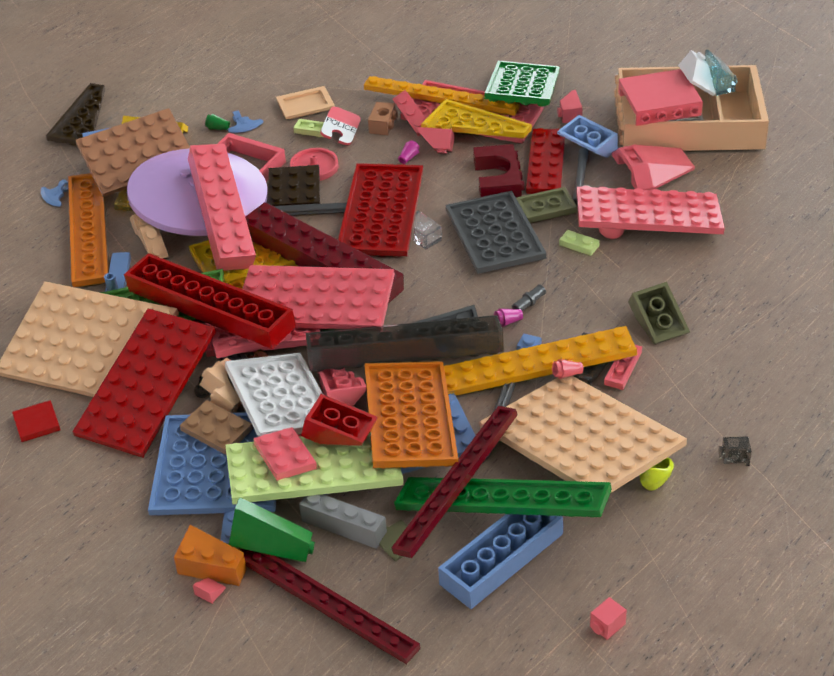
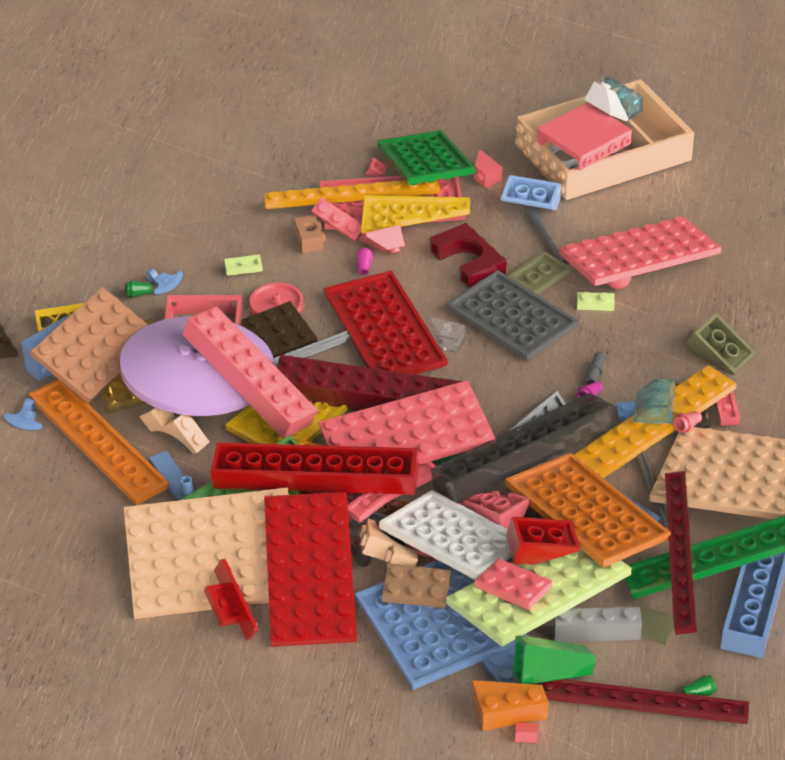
camera: 30 degrees left, 0 degrees up
(36, 421) = (221, 647): red tile -> none
(59, 386) = (229, 602): none -> red bracket
(305, 102) = (211, 240): light nougat piece -> none
(342, 122) = (271, 250): piece -> none
(389, 612) = (702, 686): none -> green cone
(481, 82) = (375, 168): none -> coral slope
(545, 161) = (502, 230): red plate -> none
(548, 343) = (655, 402): none -> clear light blue slope
(653, 164) = (610, 203): coral wedge -> none

